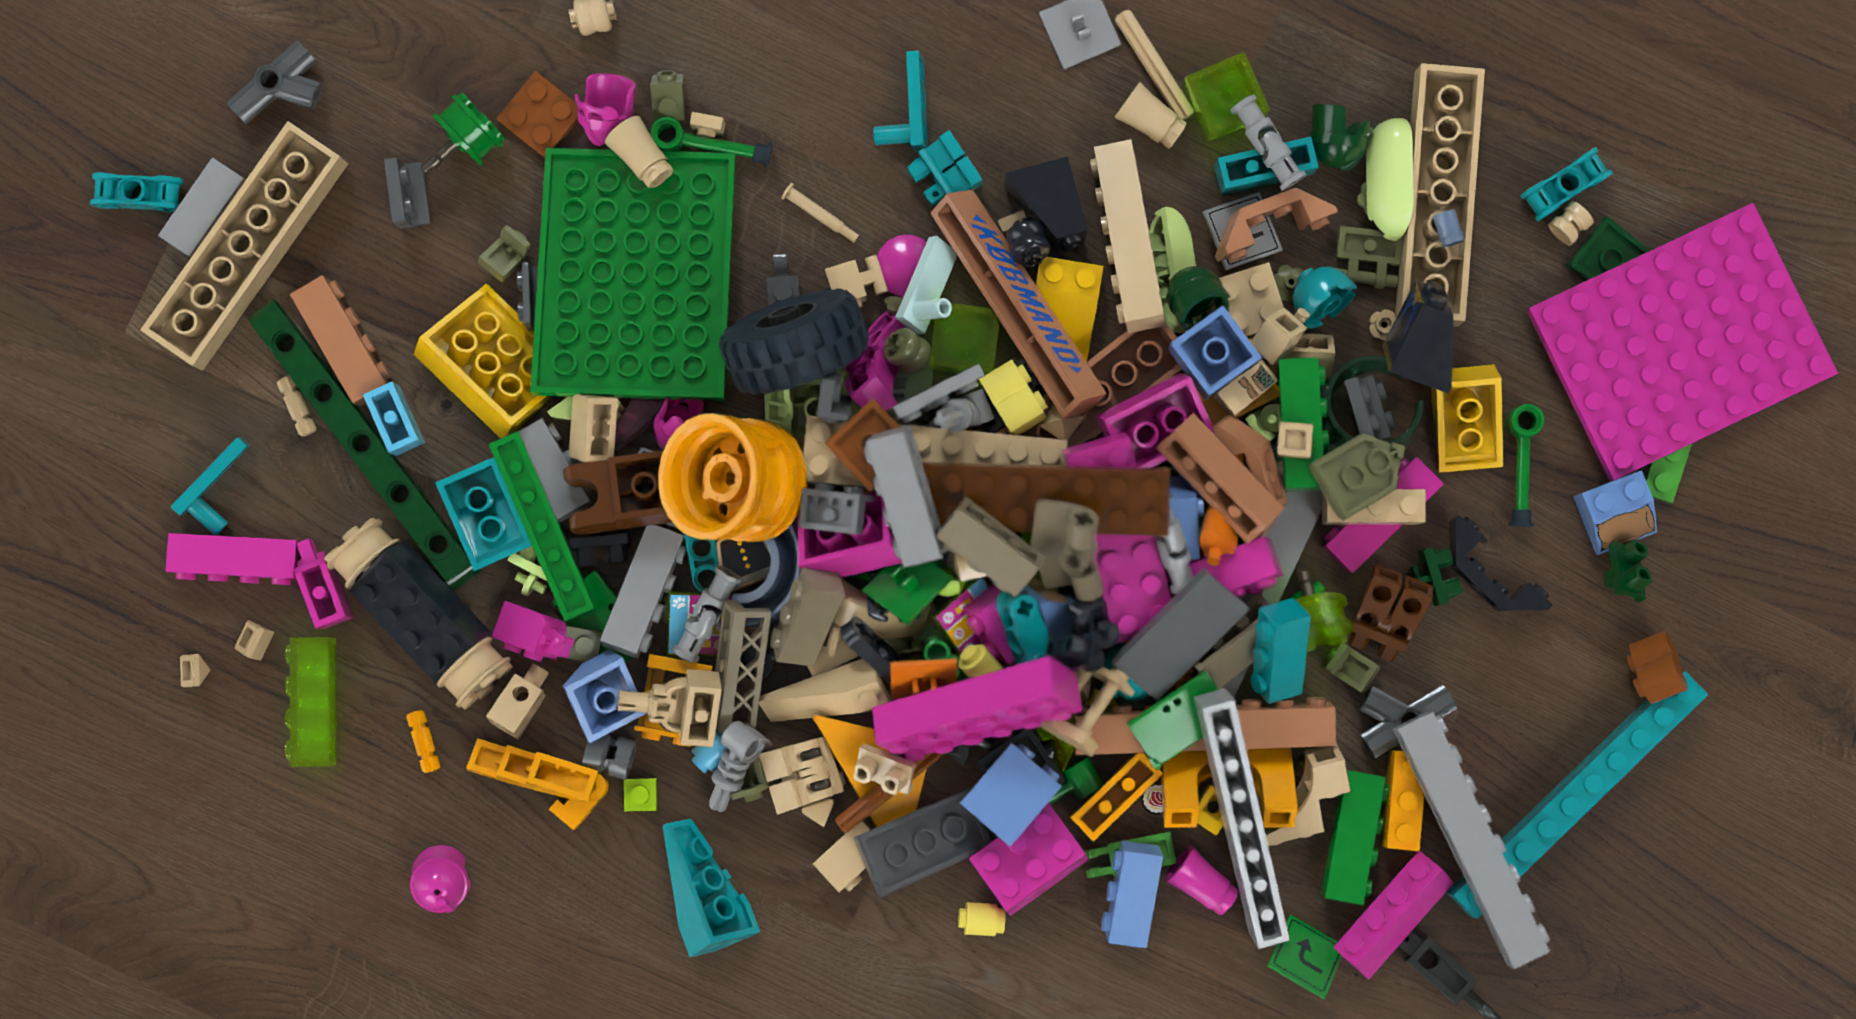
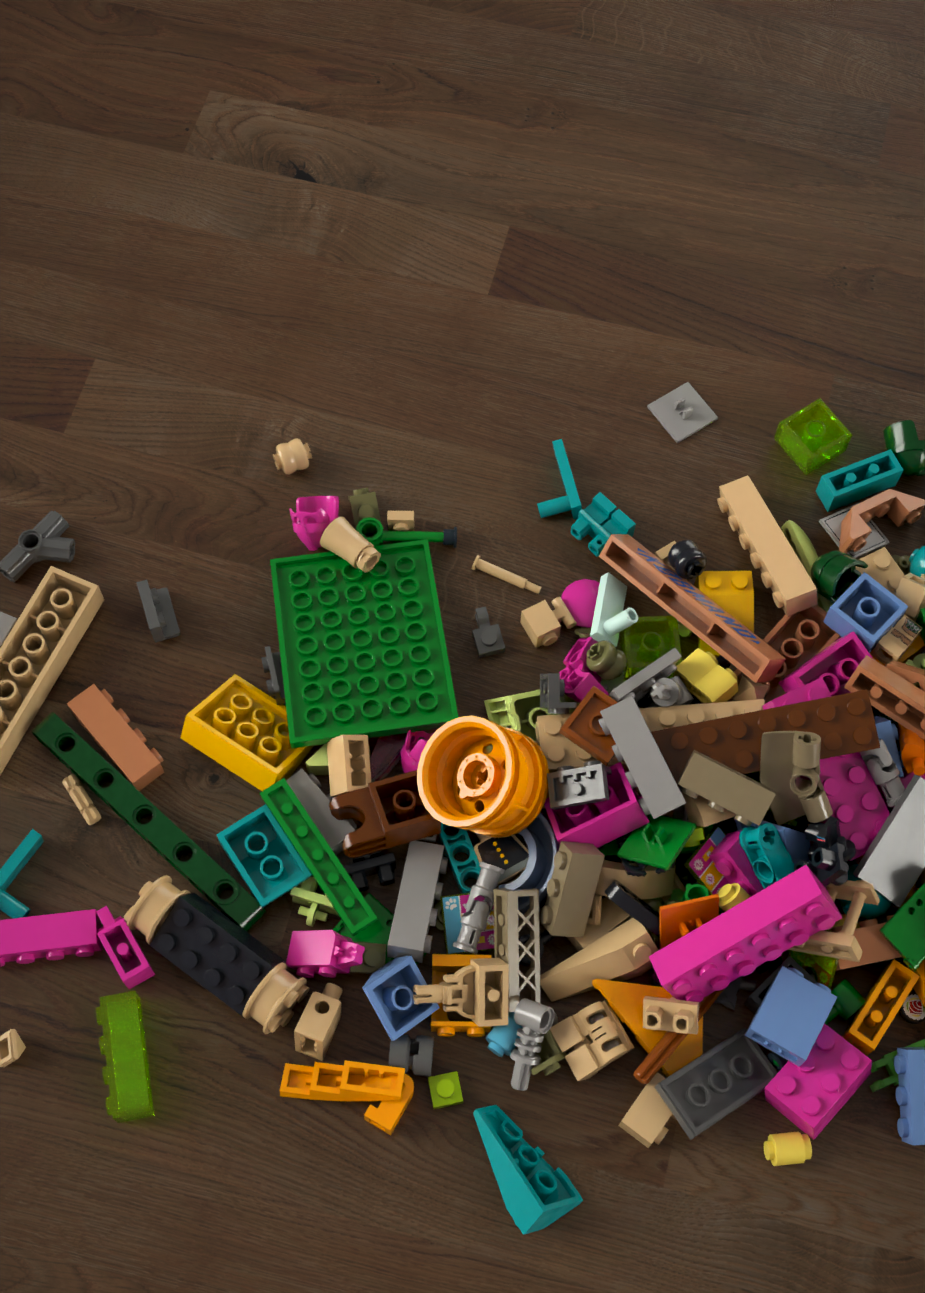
camera: 15 degrees left, 20 degrees down
(254, 640) = (64, 1011): tan slope -> none
(394, 418) = (171, 791): medium azure brick -> none
(423, 741) = (234, 1076): light orange axle -> none
(440, 869) = (266, 1192): dark pink helmet -> none
(467, 131) = (202, 553): green wheel -> none
(505, 253) = (248, 645): olive bracket -> none
(539, 114) = (260, 538): dark orange plate -> none
(794, 341) = (512, 661): black wheel -> none
(819, 810) = (614, 1073): tan slope -> none
(1050, 196) = (695, 520): black slope -> none
(1151, 116) = (757, 461): tan plant -> none
(1153, 64) = (748, 427): tan axle -> none
(1274, 151) = (860, 455): light grey piece -> none

